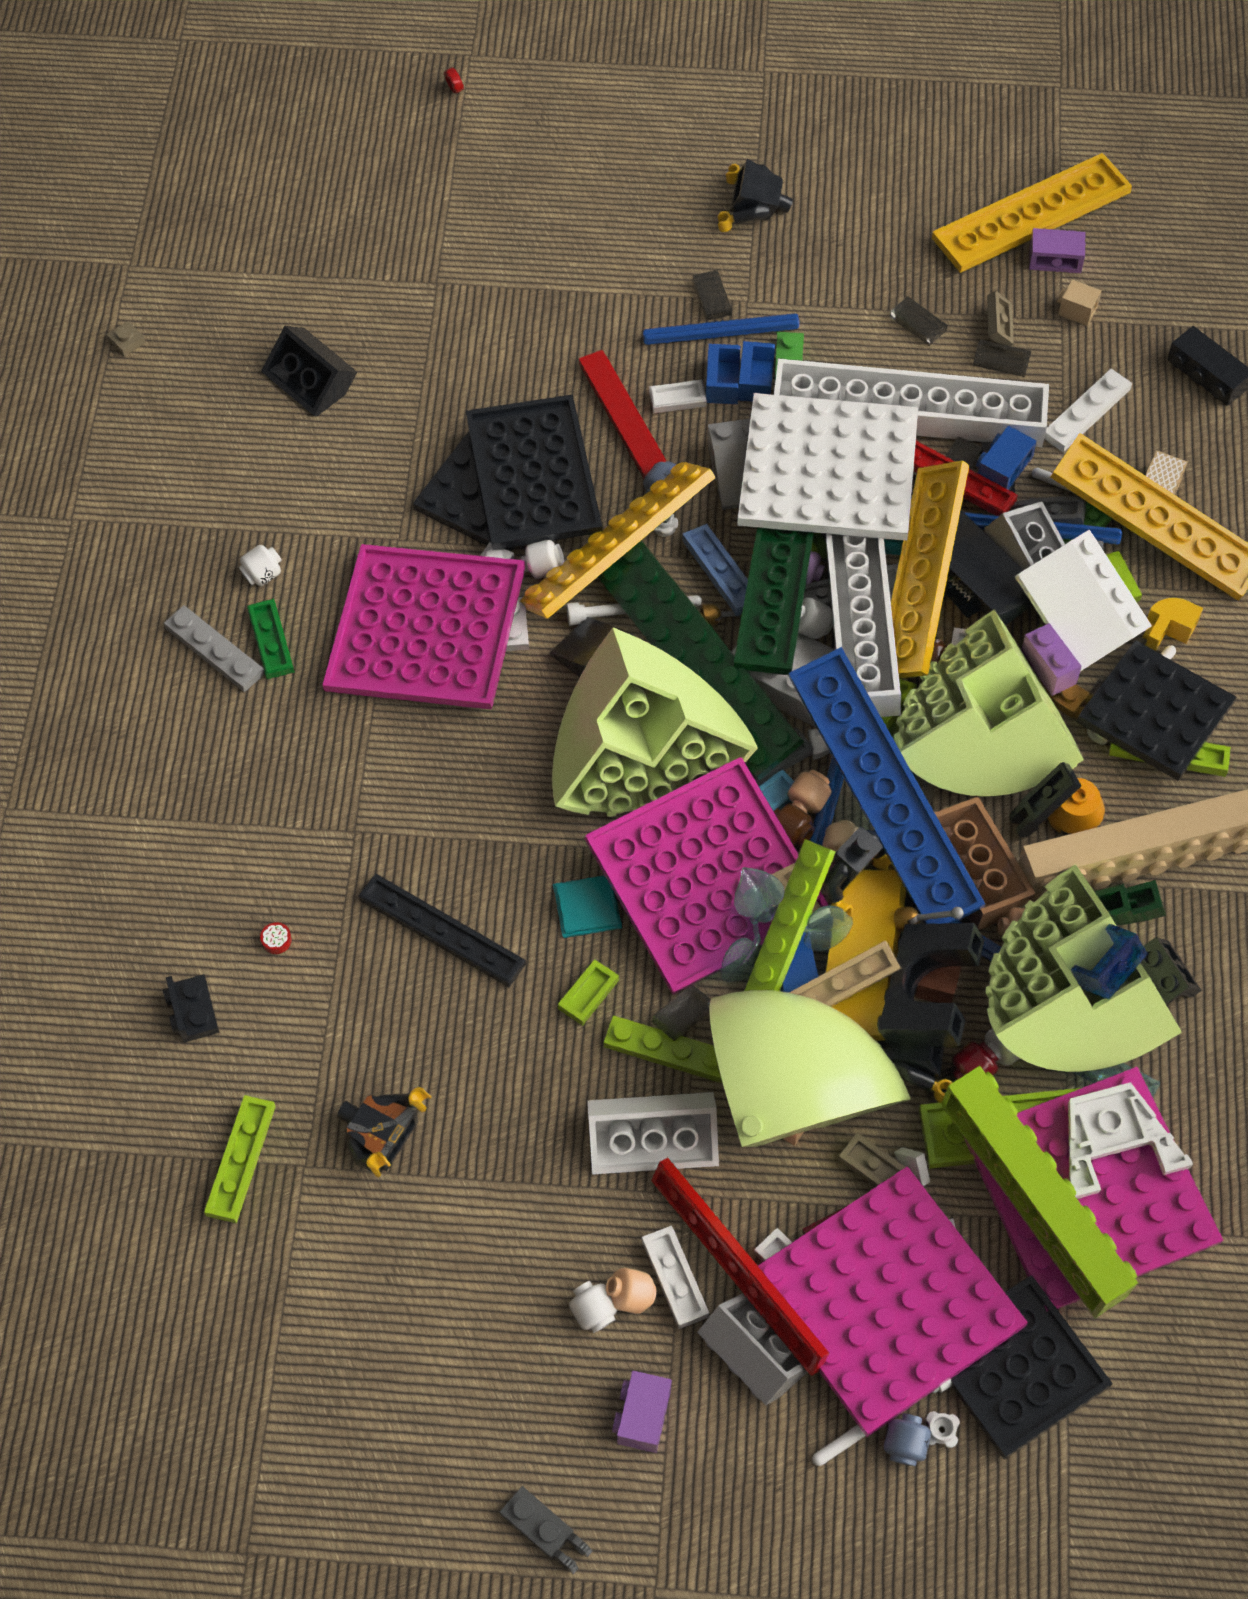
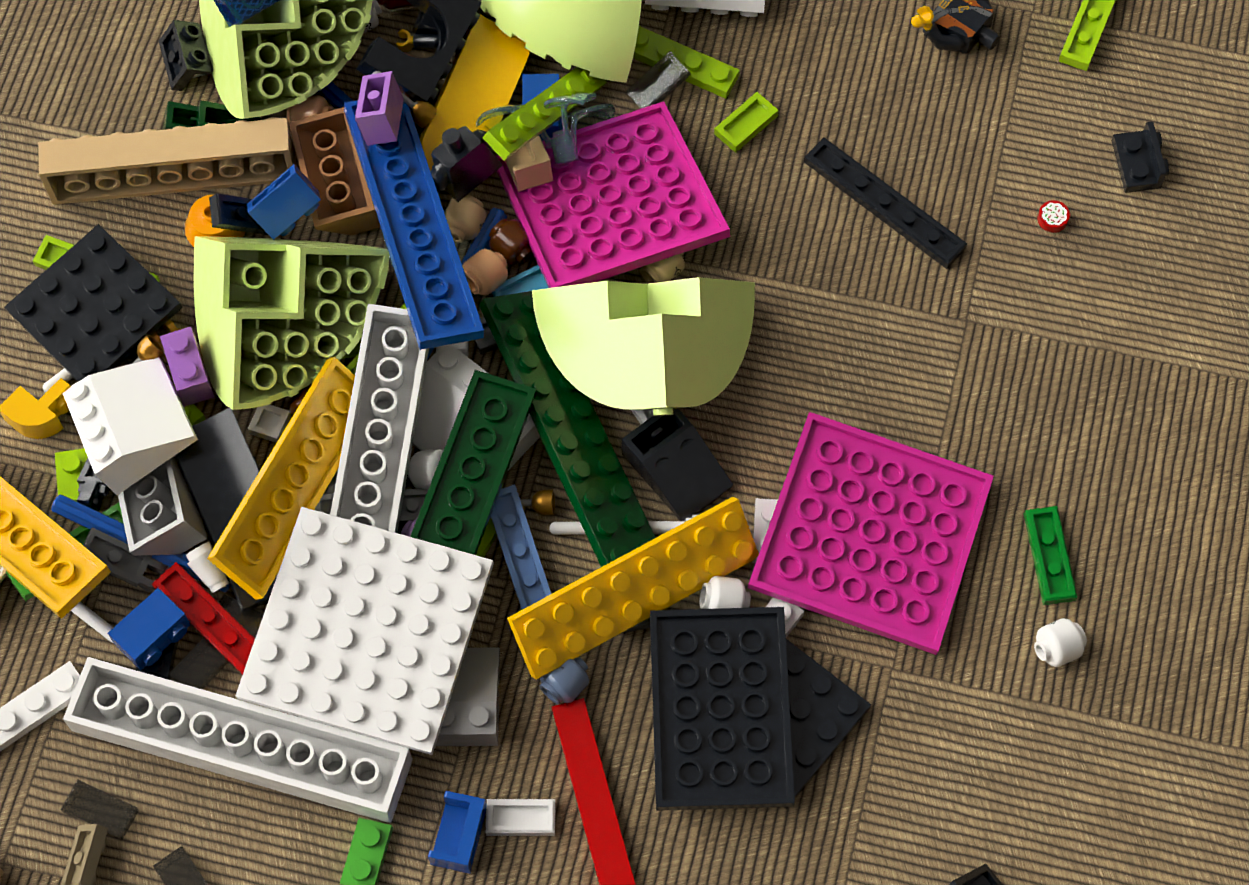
camera: 170 degrees left, 5 degrees up
(214, 648) = (1116, 552): light grey plate -> none
(586, 906) = (741, 206): teal piece -> none
(756, 369) = (416, 828): blue panel -> none
(851, 976) = (498, 59): tan plate -> none
(944, 876) = (379, 108): none -> medium lavender brick
(978, 510) = (206, 570): none -> white cone
(1011, 799) = (284, 202): none -> blue brick
(1091, 676) = (149, 349): none -> pearl gold hinge

